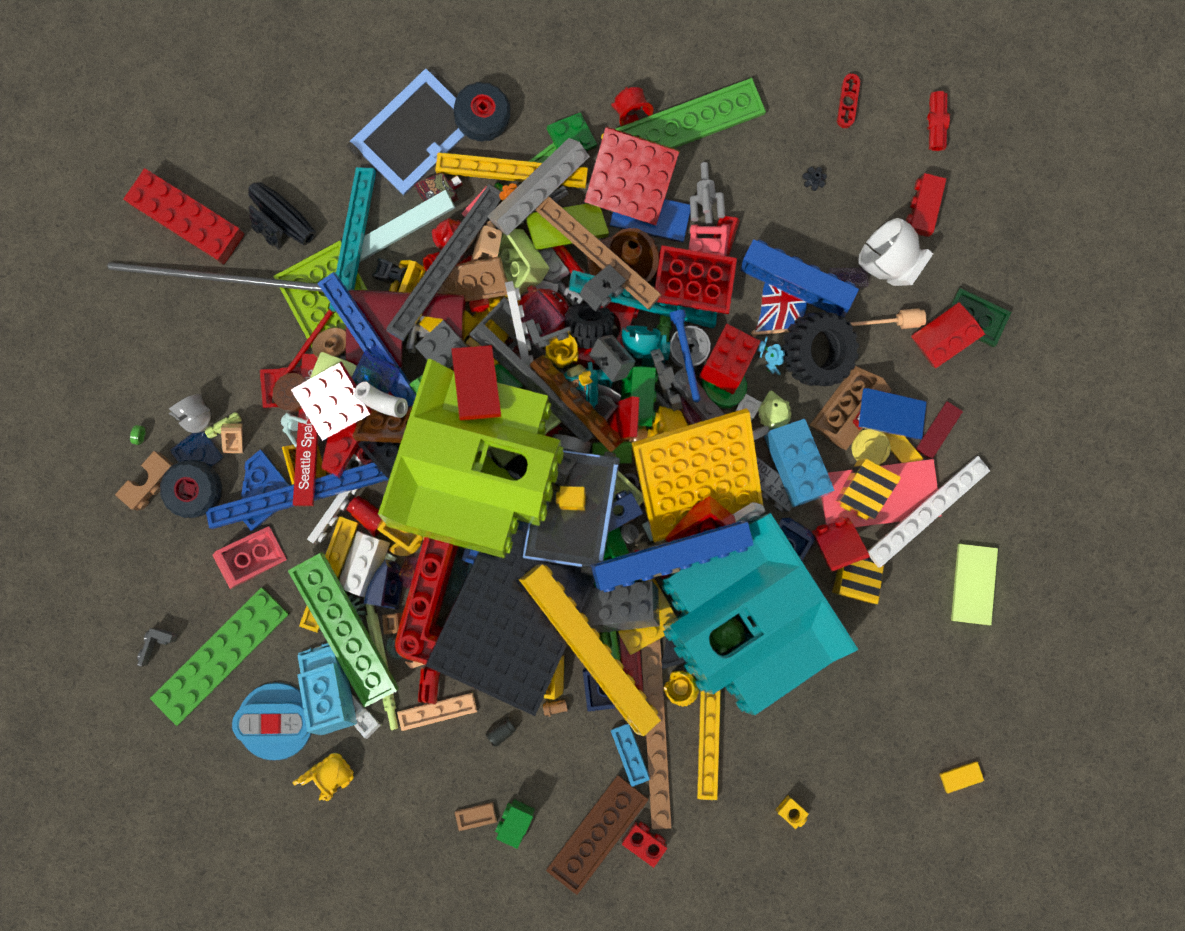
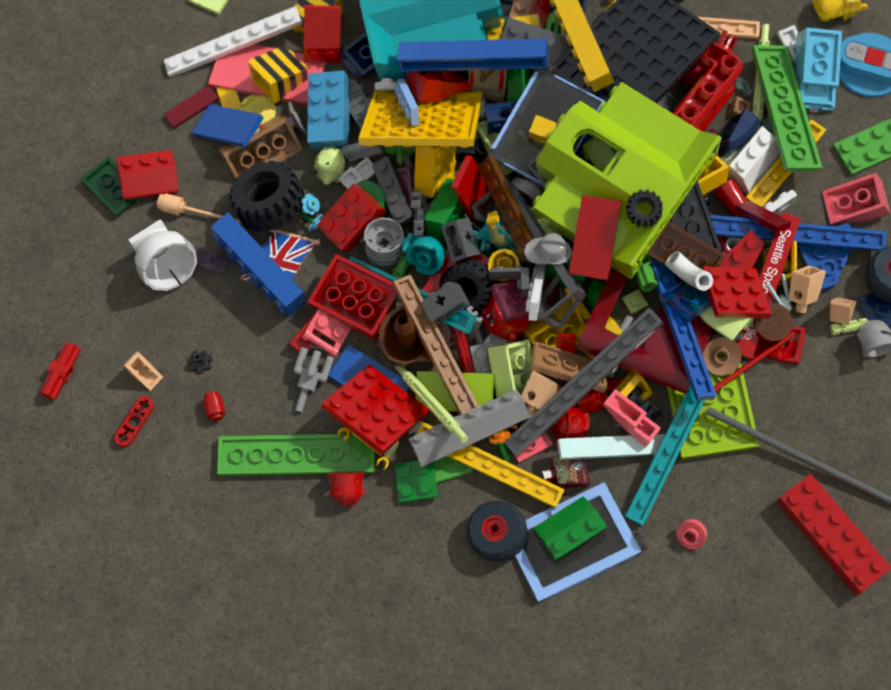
camera: 155 degrees left, 15 degrees down
(273, 436) = (805, 287): none -> light nougat torso
(277, 217) = (737, 501): black plate -> none
(309, 173) = (691, 534): none -> coral plate
(330, 494) = (763, 216): none -> dark red tile
(394, 251) = (631, 418): none -> coral slope
(417, 135) = (570, 528): none -> green slope
(438, 344) = (614, 305): dark grey plate -> none
(441, 421) = (644, 196): none -> black tyre
(519, 362) = (548, 250): none -> light grey piece
(577, 192) = (429, 400): none -> yellowish green axle
(678, 318) = (384, 260): blue piece -> none
(718, 480) = (407, 102): none -> light blue plate
(782, 138) = (214, 406): none -> red brick
(828, 447) = (294, 119): none -> light grey dish
(861, 146) = (143, 371): none -> light nougat slope
(926, 204) = (109, 297): red brick -> none

